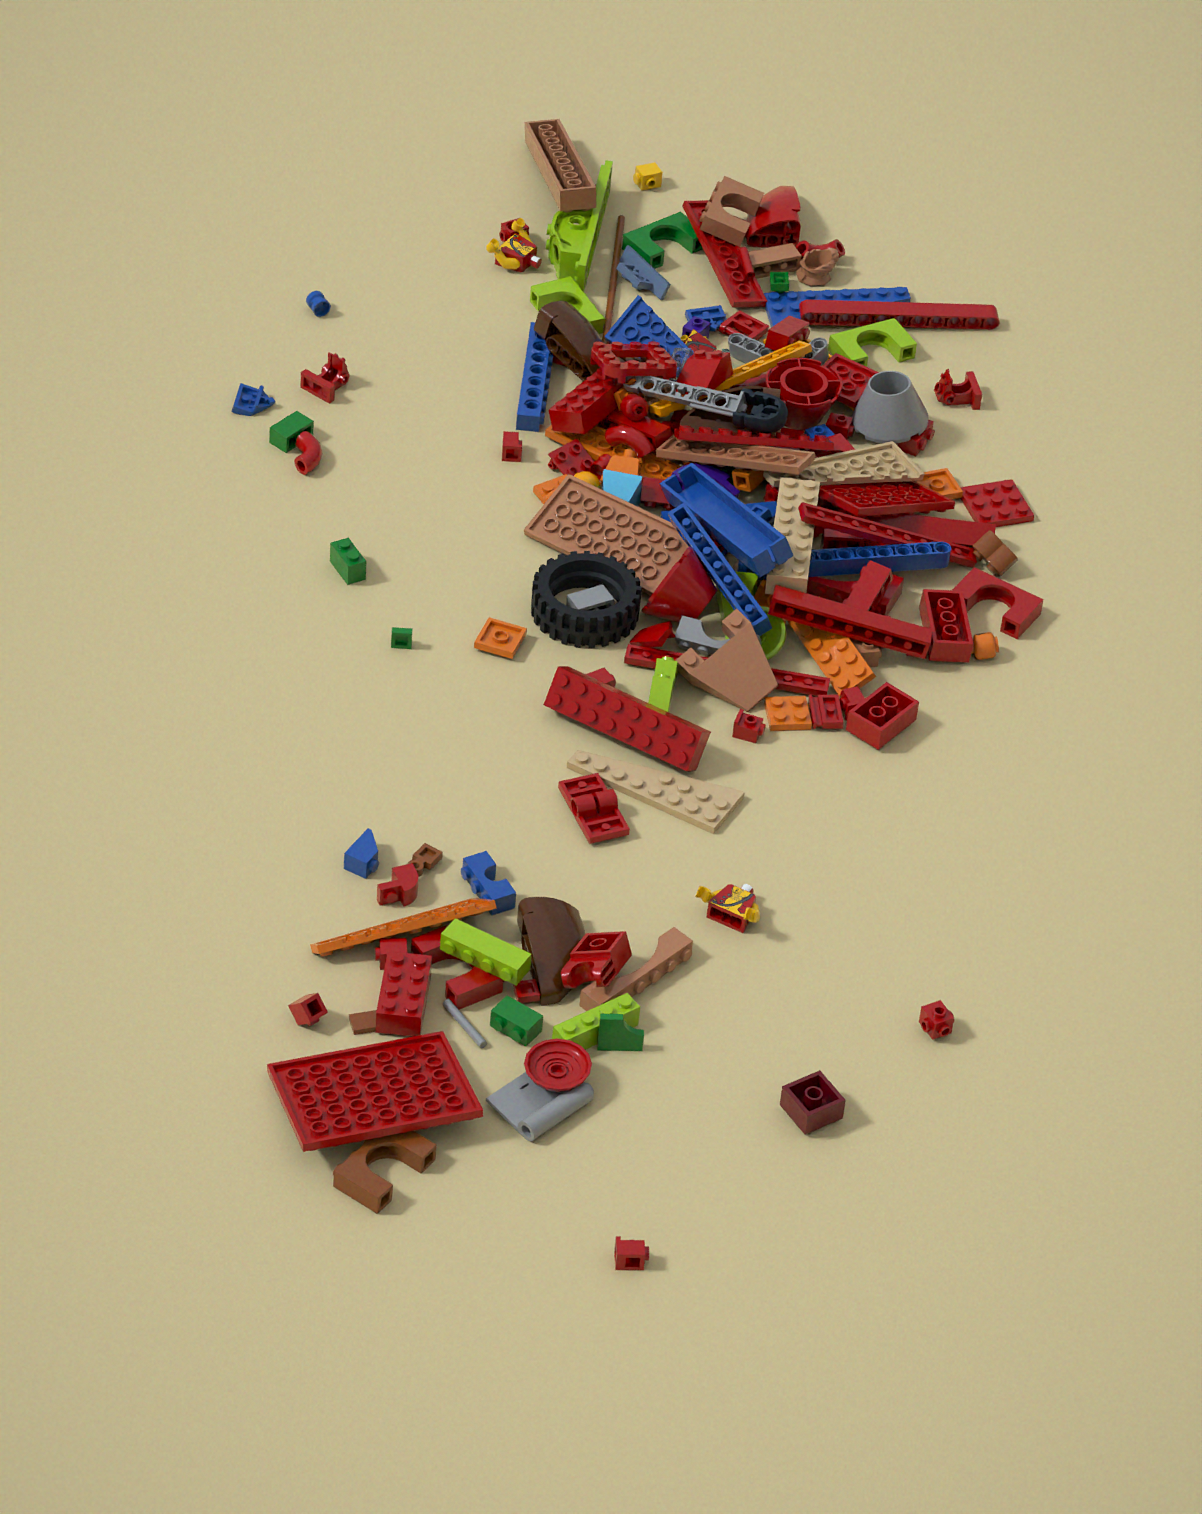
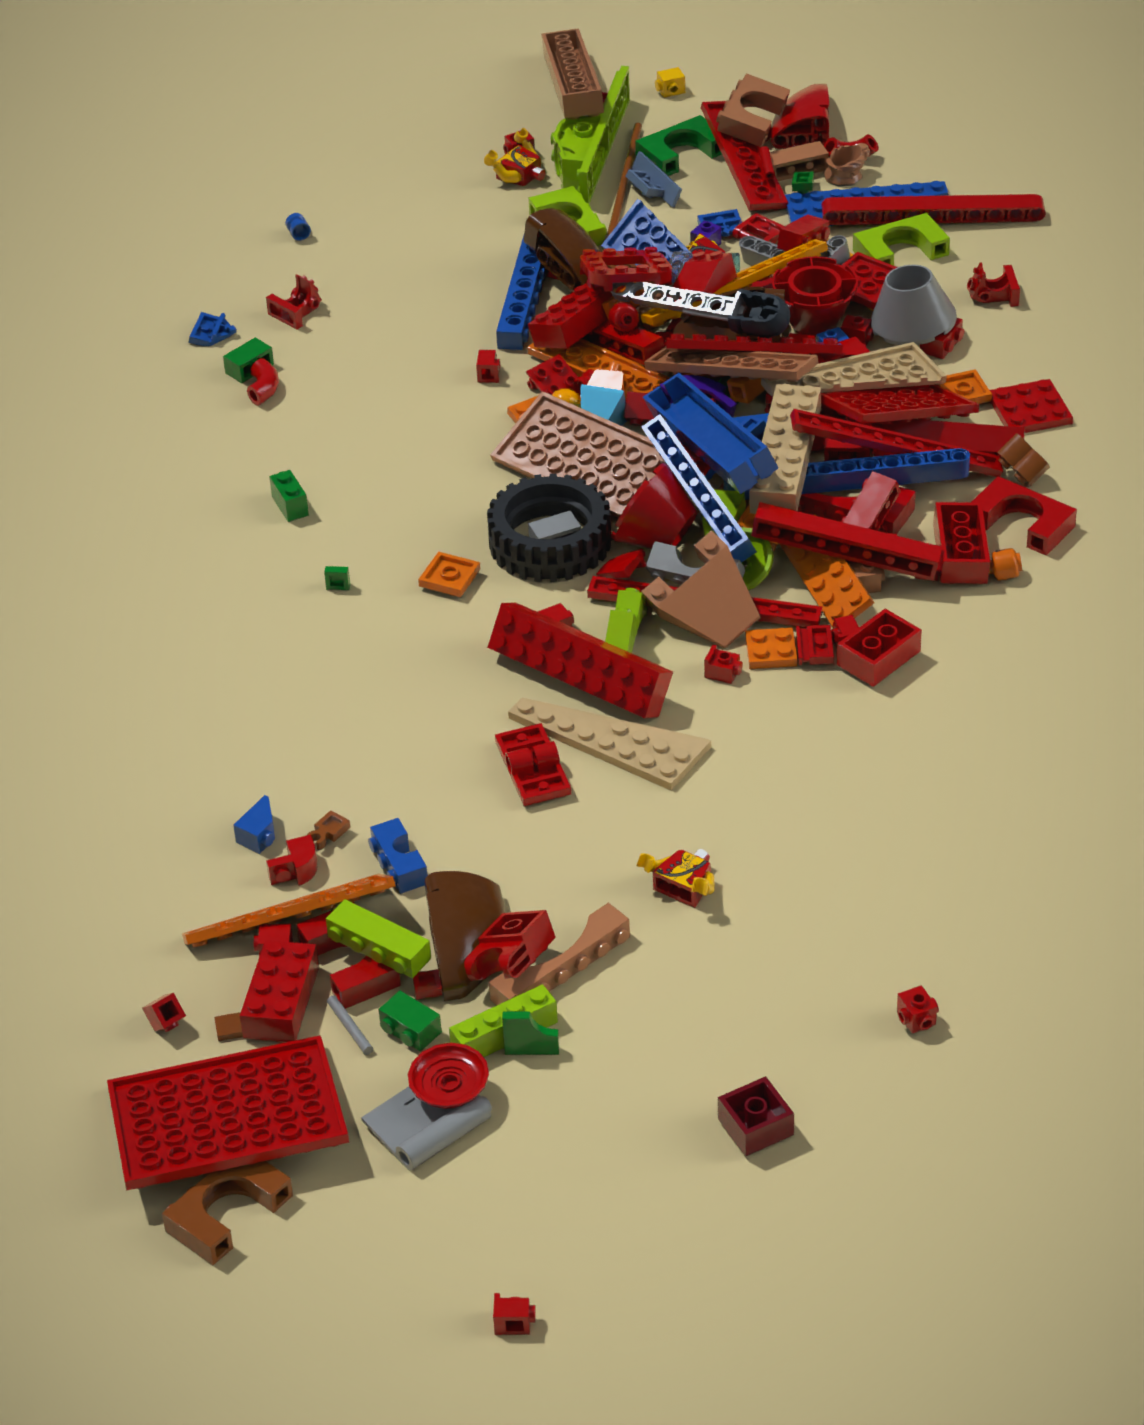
camera: 10 degrees right, 0 degrees up
(631, 437) = (617, 349): red cylinder -> none

